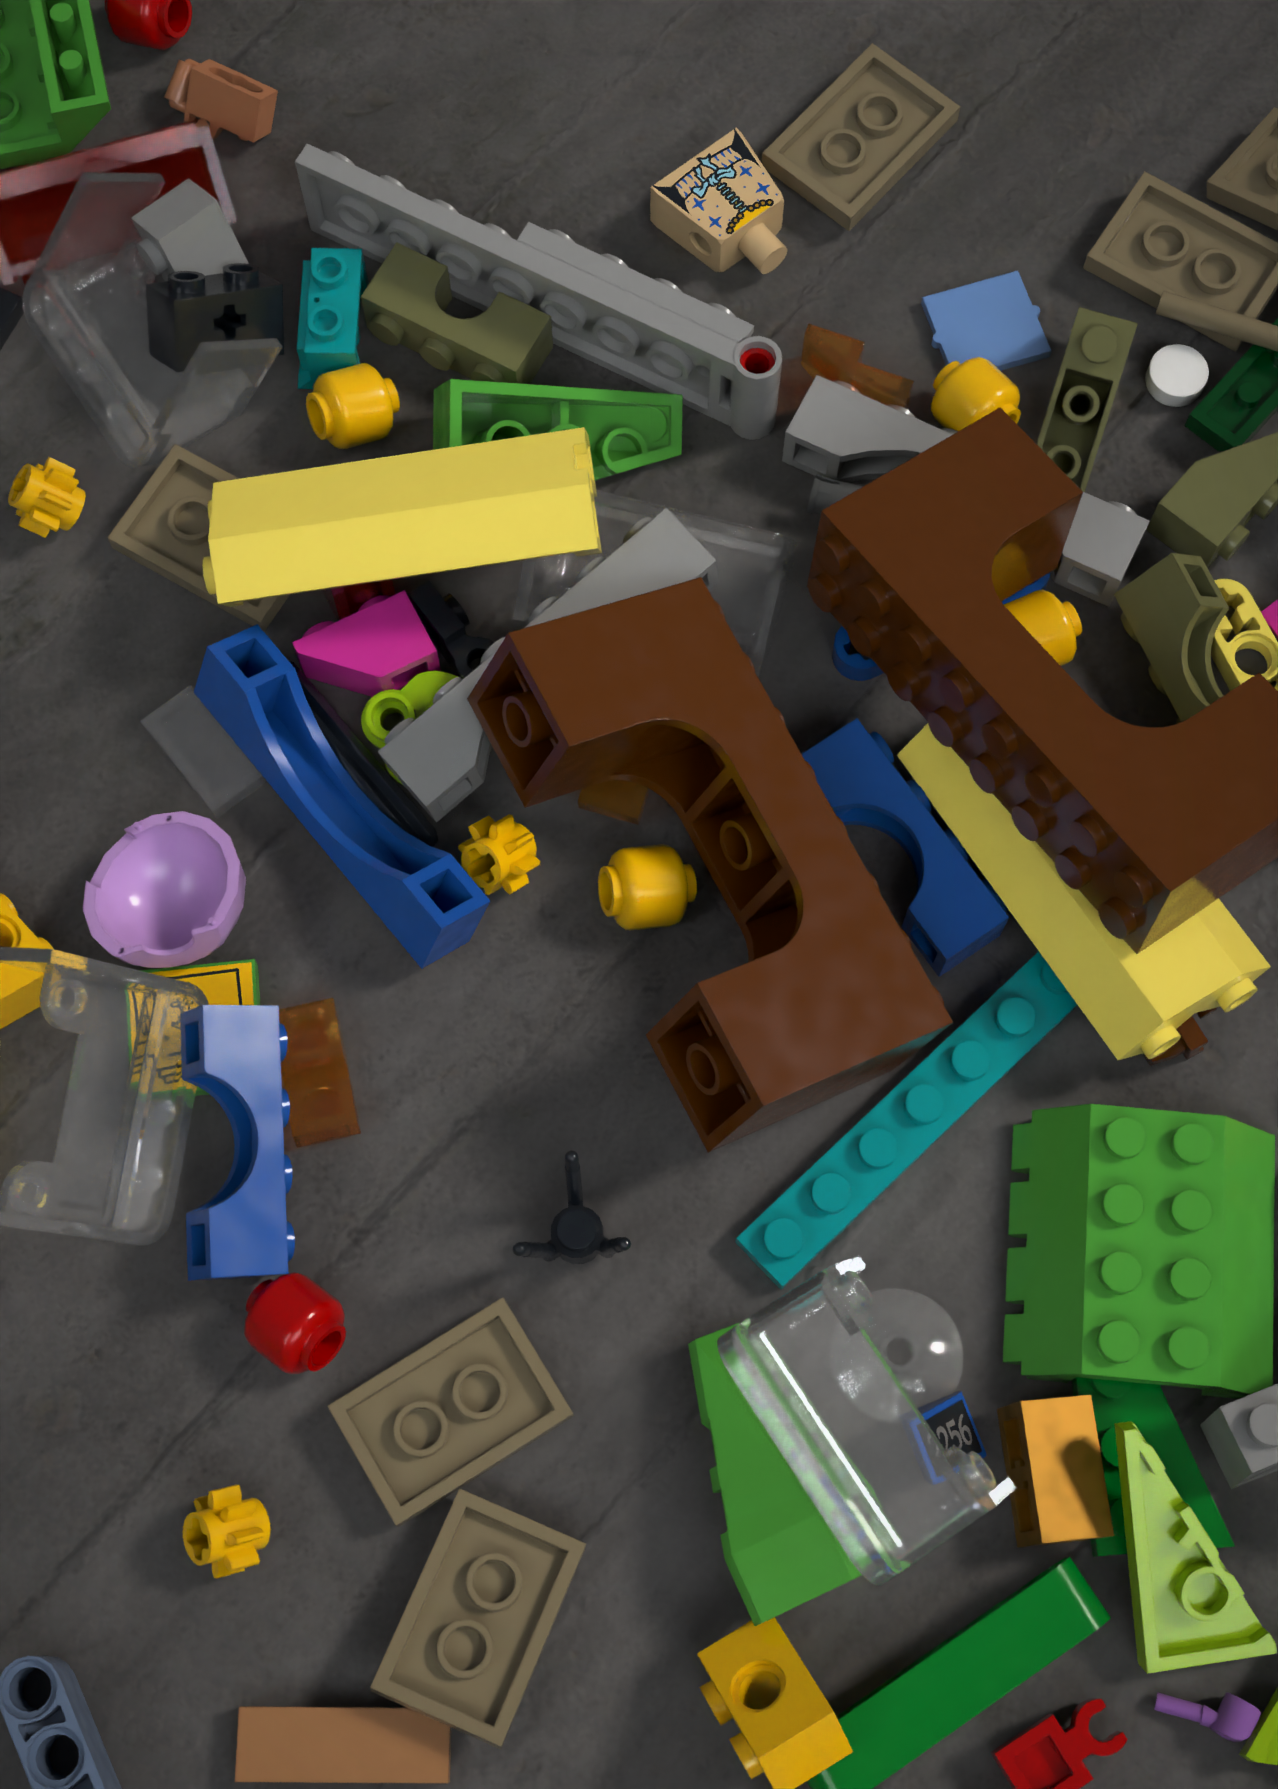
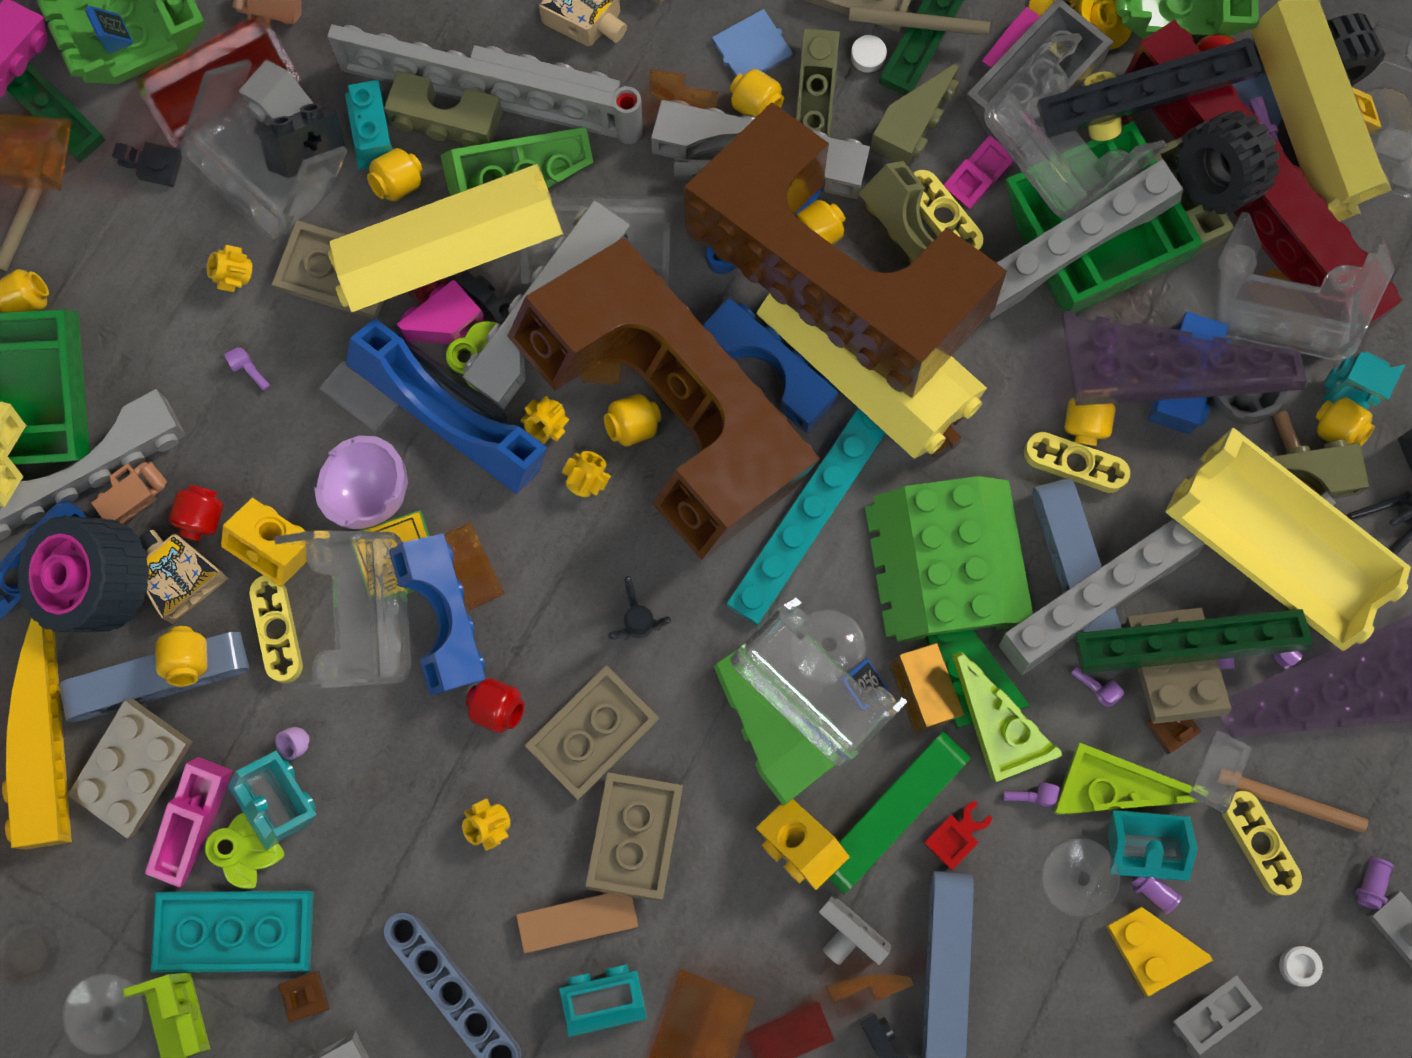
camera: 15 degrees left, 5 degrees up
(25, 646) = (240, 359): none -> medium lavender hand
(546, 960) = (586, 474): none -> yellow gear

